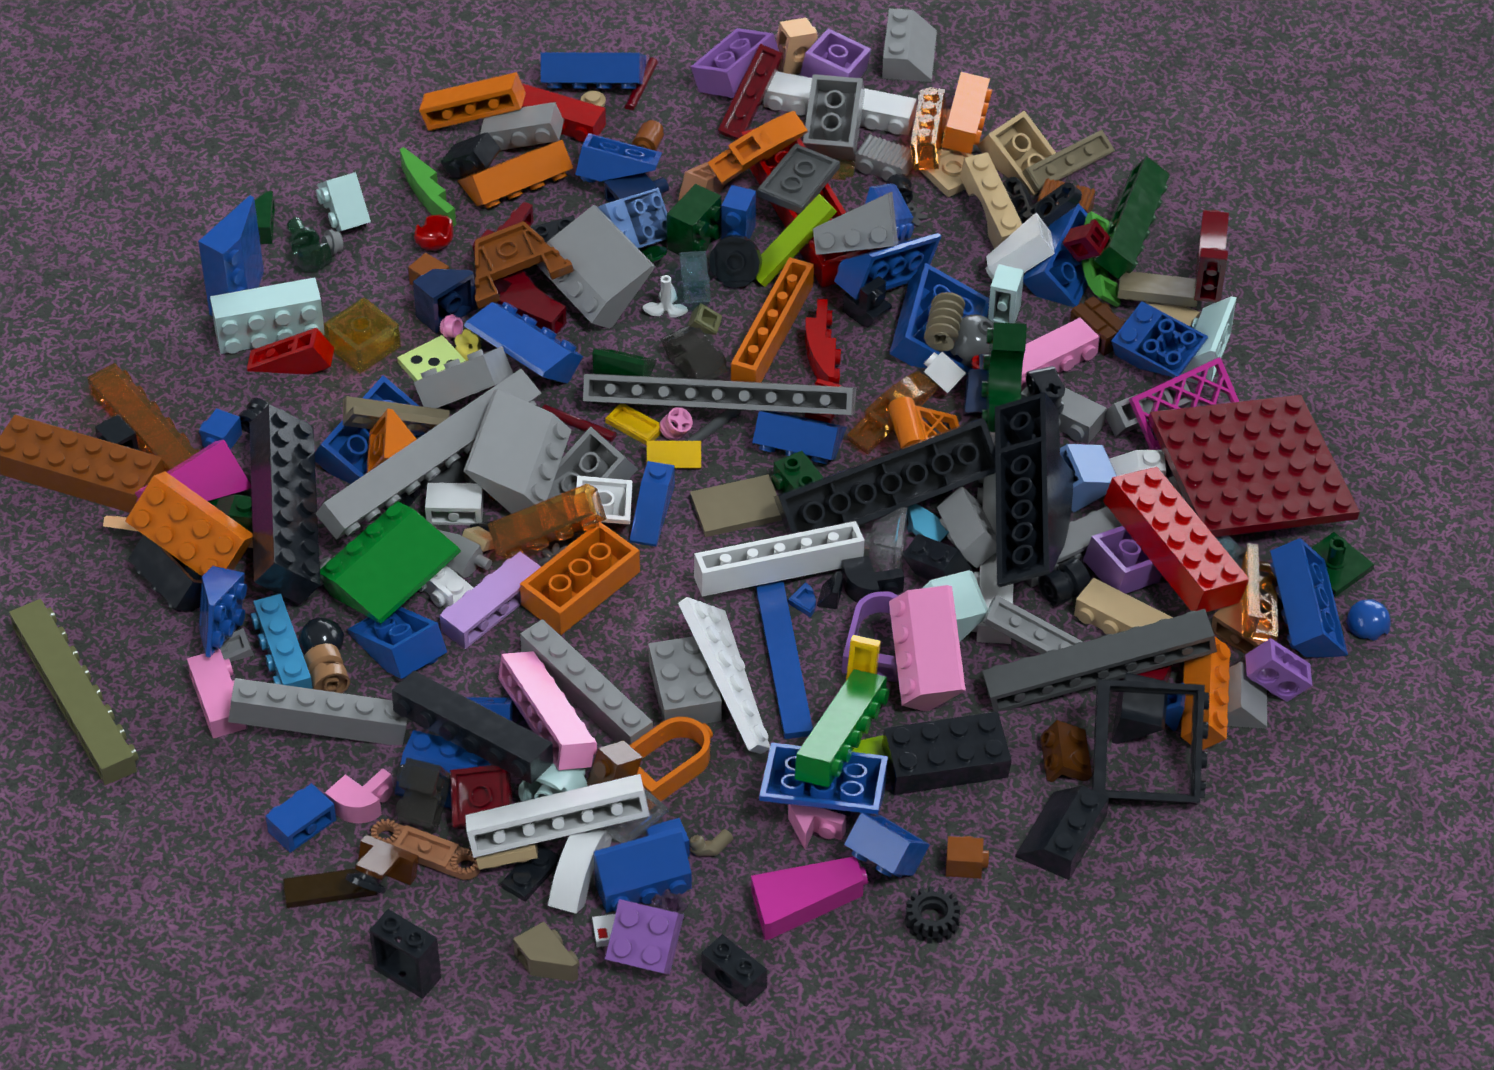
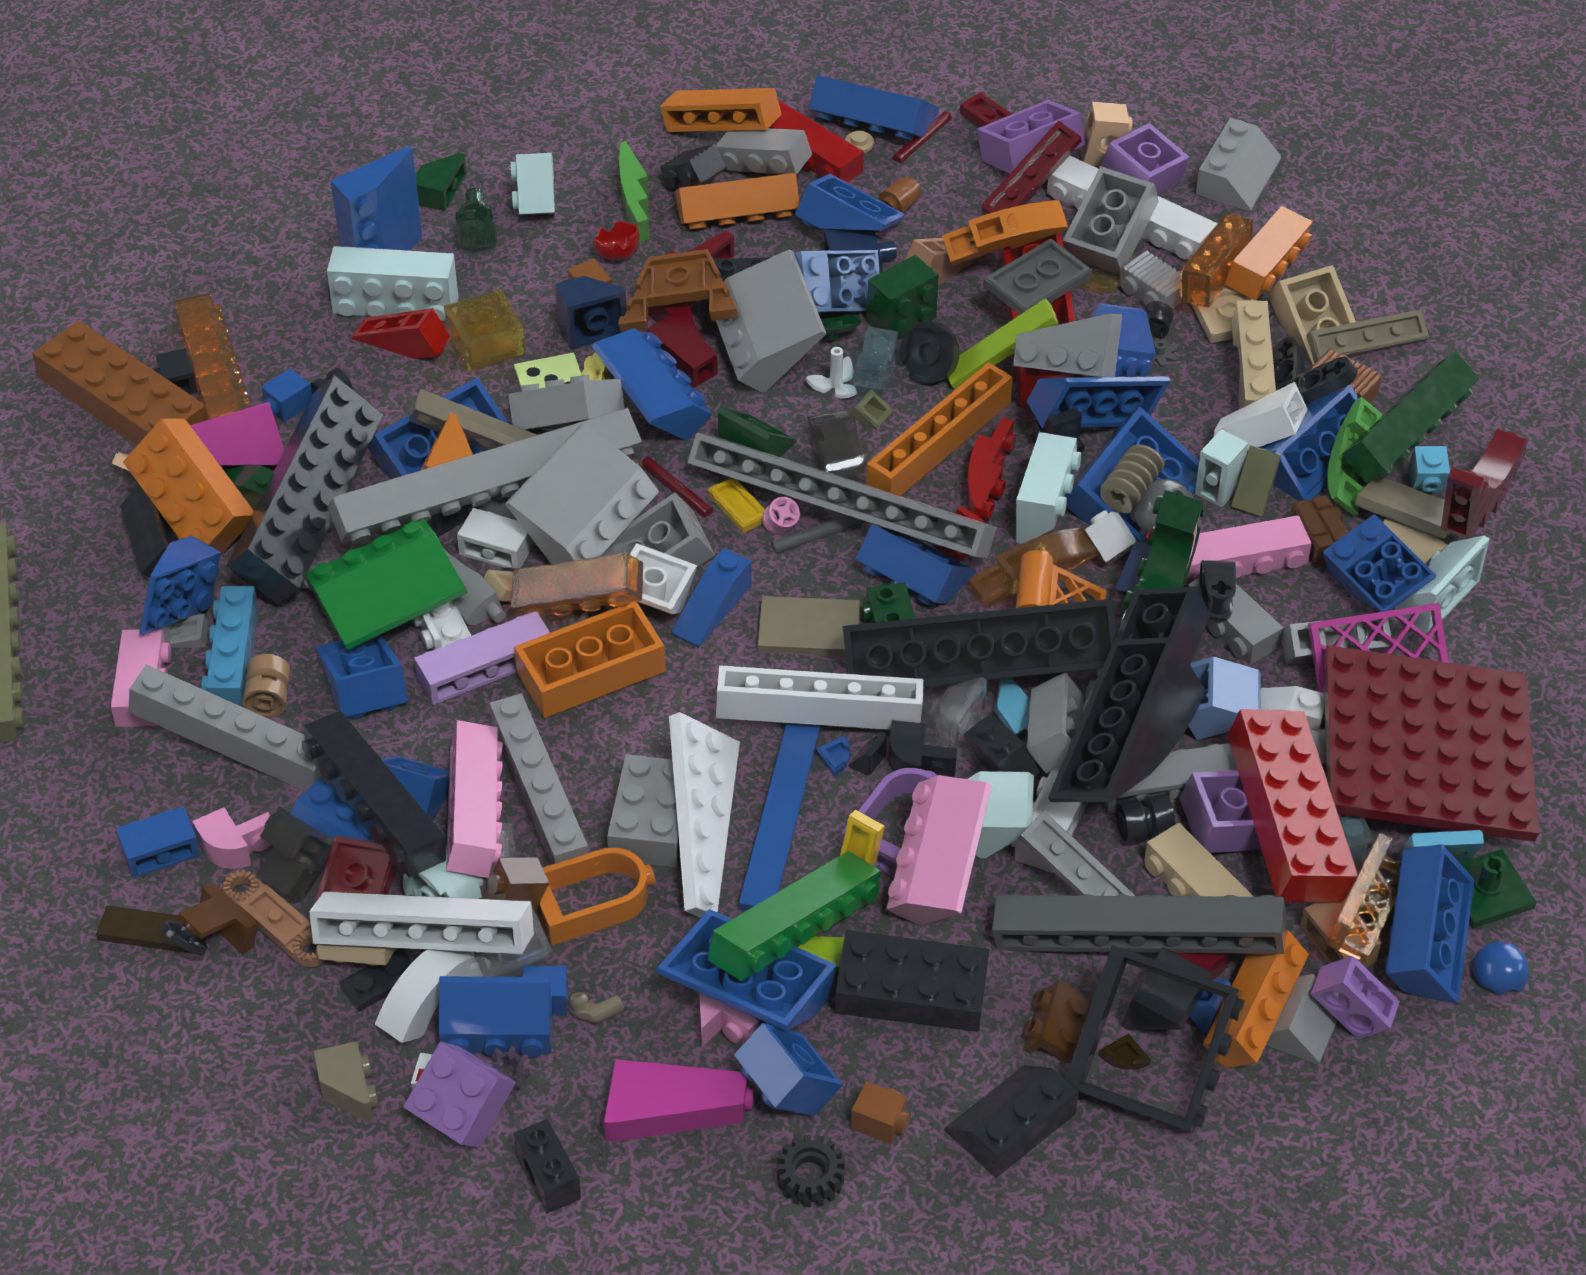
camera: 20 degrees right, 0 degrees up
(320, 631) = (284, 642): black hair -> none
(334, 240) = (505, 224): light grey plate -> none
(415, 954) = (184, 1029): black window -> none
(451, 326) = (583, 344): bright pink plate -> none
(678, 453) = (765, 549): yellow tile -> none
(684, 50) = (982, 110): none -> dark red plate
(739, 212) = (956, 301): blue brick -> none
(879, 345) = (1045, 485): none -> light aqua slope
(1035, 298) = (1256, 480): none -> olive tile
(1086, 240) = (1339, 428): dark red brick -> none
(1124, 761) = (1125, 1053): none -> dark brown tile
(1161, 255) = (1429, 468): none -> medium azure brick
(1309, 534) = (1460, 844): none -> medium azure tile

